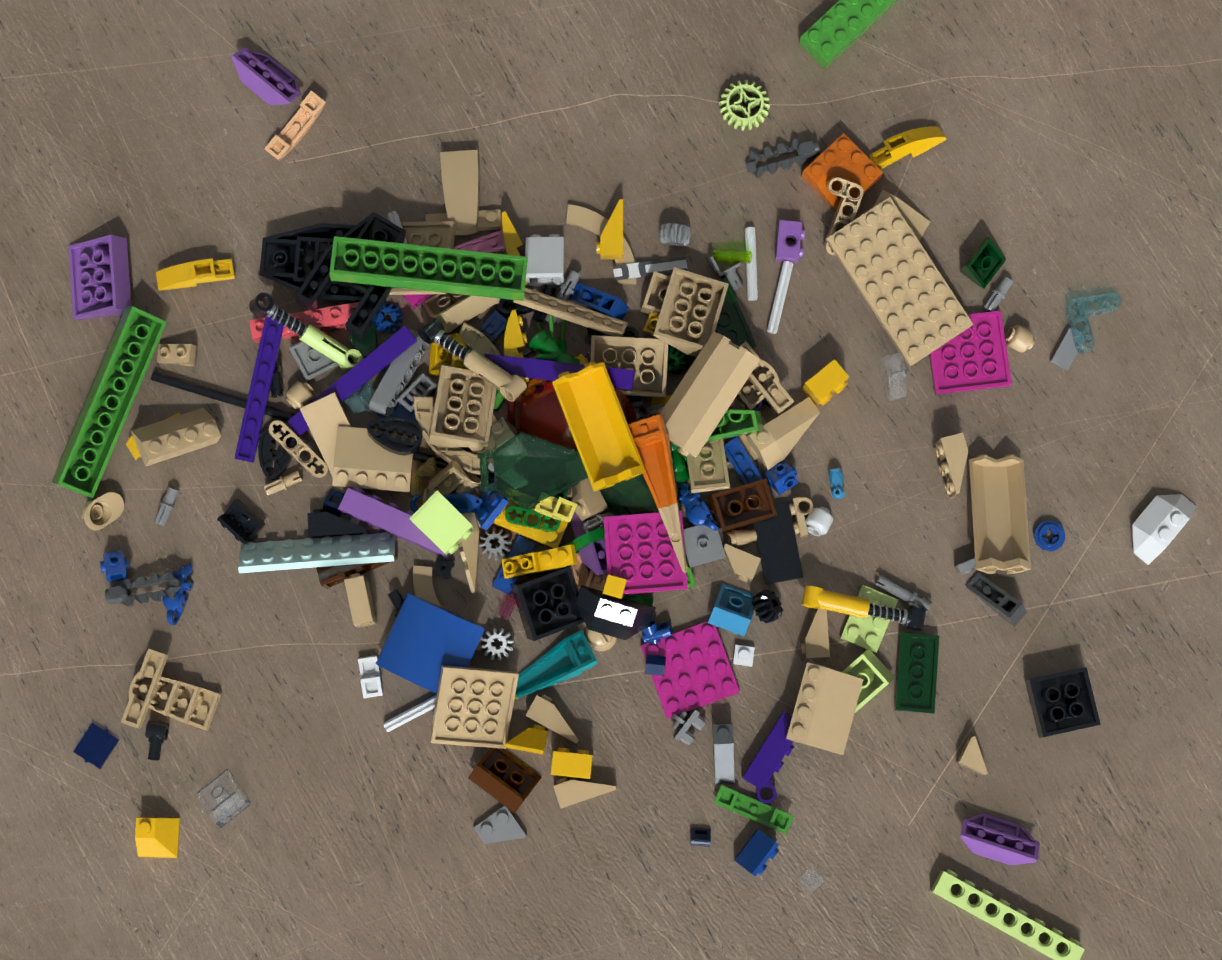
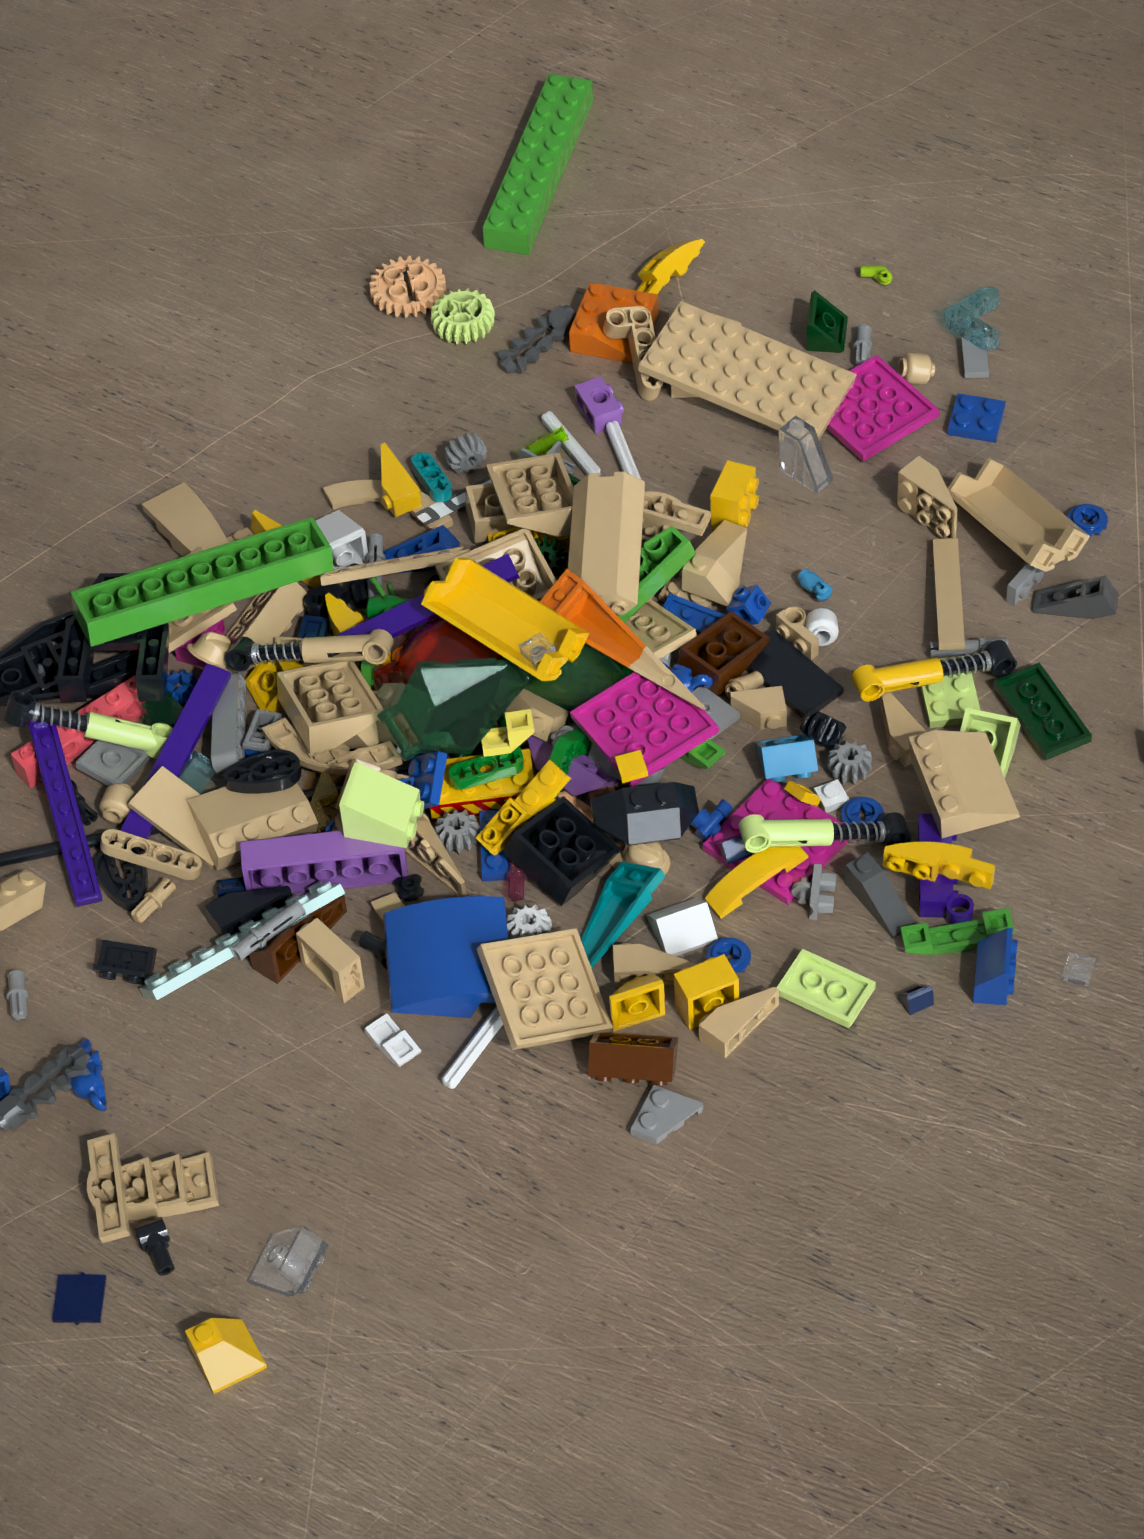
camera: 30 degrees left, 30 degrees down
(321, 567) = (258, 937): none -> light grey pin
(413, 314) = (212, 649): none -> tan piece
(591, 697) = (683, 926): none -> white slope
(605, 463) = (535, 648): none -> clear plate
(615, 739) = (741, 952): none -> blue gear
(638, 245) = (431, 485): none -> teal beam
(649, 799) = (826, 988): none -> yellowish green plate
(657, 692) = (750, 874): none -> yellow slope
(674, 678) = (761, 833): none -> yellowish green piece
(707, 50) = (391, 291): none -> light nougat gear
(724, 647) = (802, 793): none -> yellow tile
(762, 680) = (871, 808): none -> blue gear
(764, 756) = (929, 859): none -> yellow slope
(774, 644) = (850, 762): none -> light grey gear
(917, 544) = (948, 594): none -> tan tile
(1034, 403) = (976, 418): none -> blue plate
(1051, 234) = (879, 273): none -> lime arm

